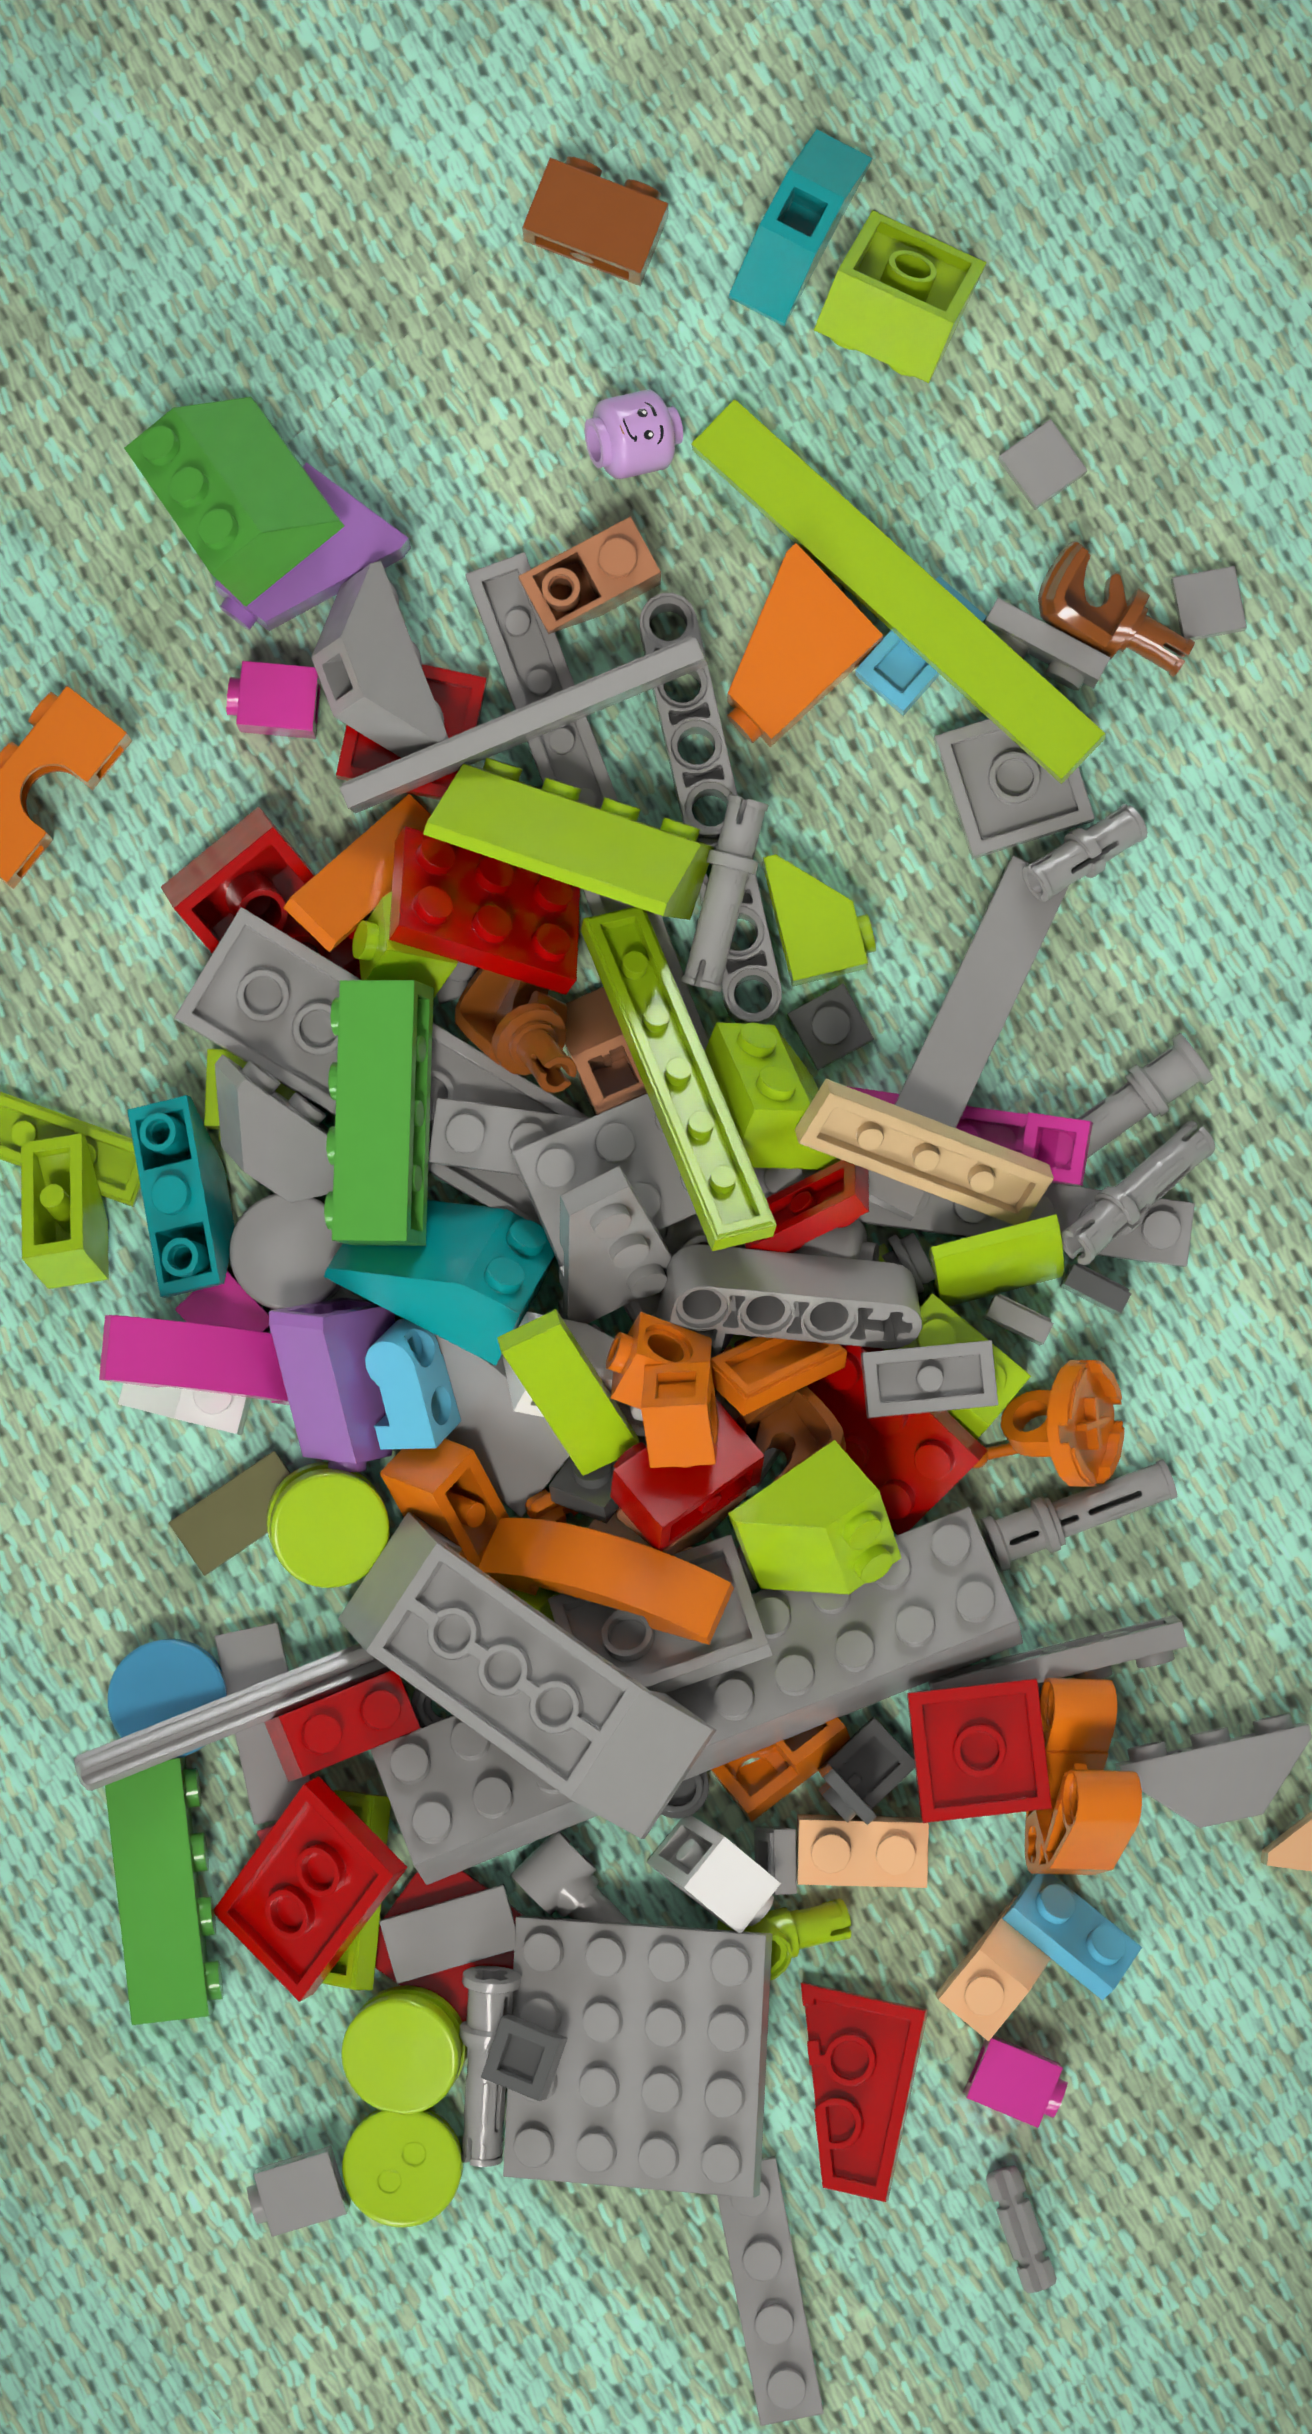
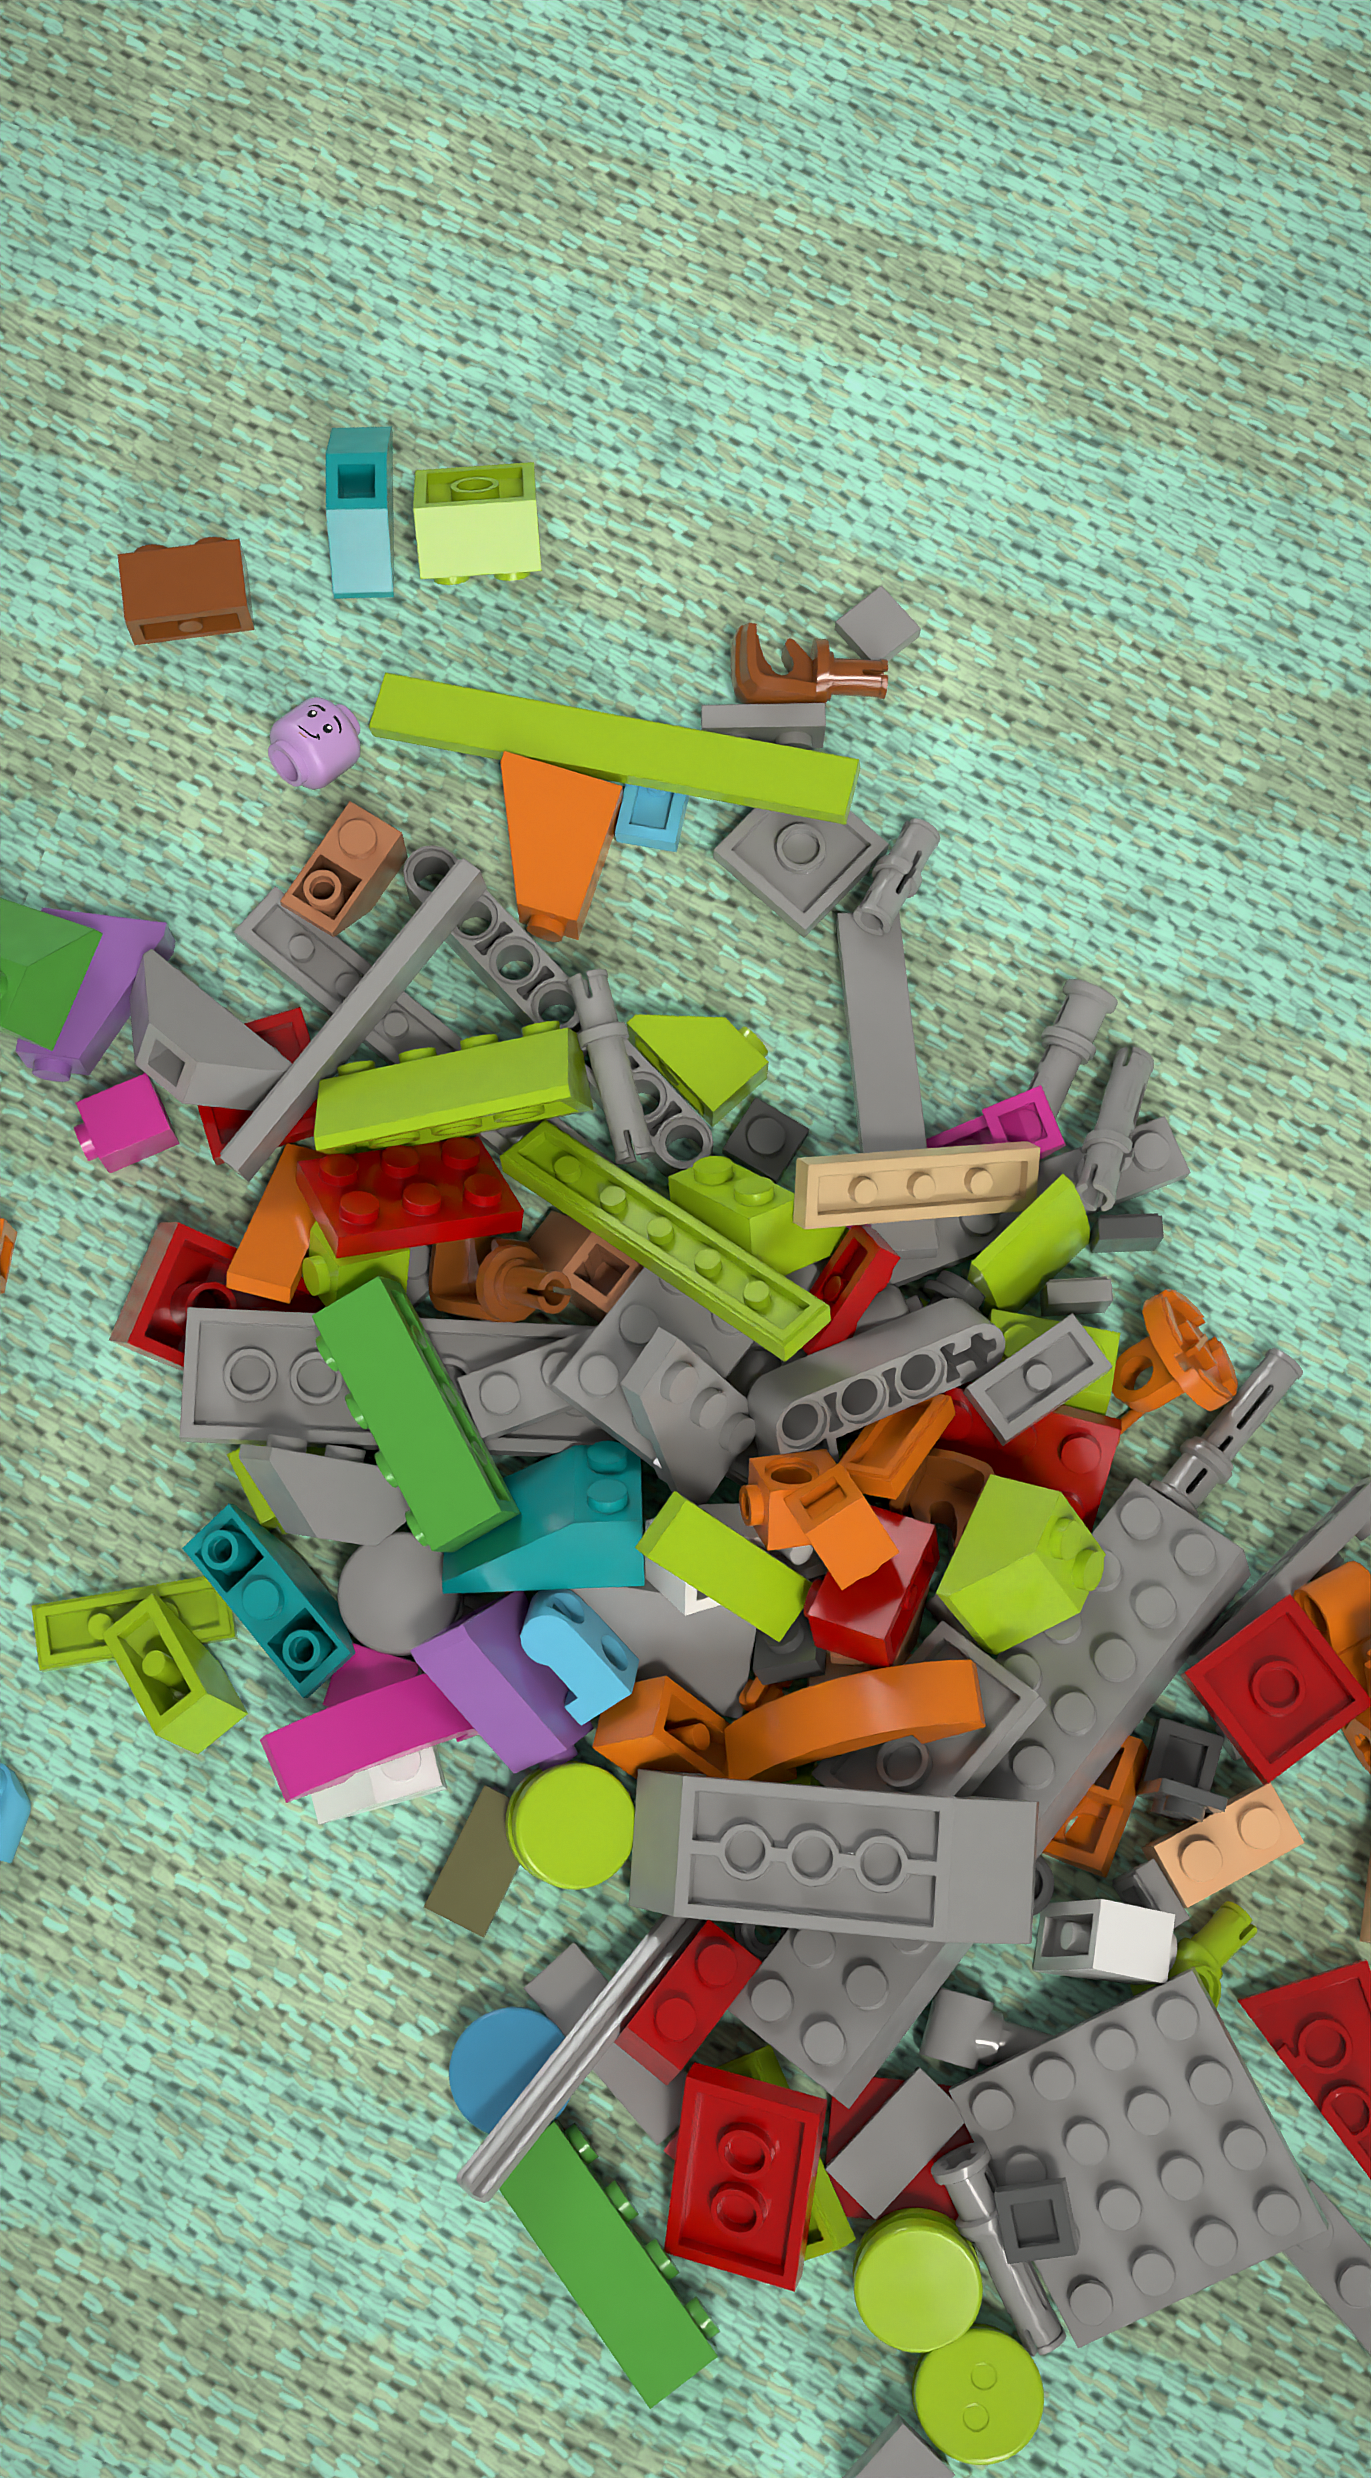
camera: 30 degrees left, 10 degrees down
(1042, 464) = (674, 592): light grey tile -> none

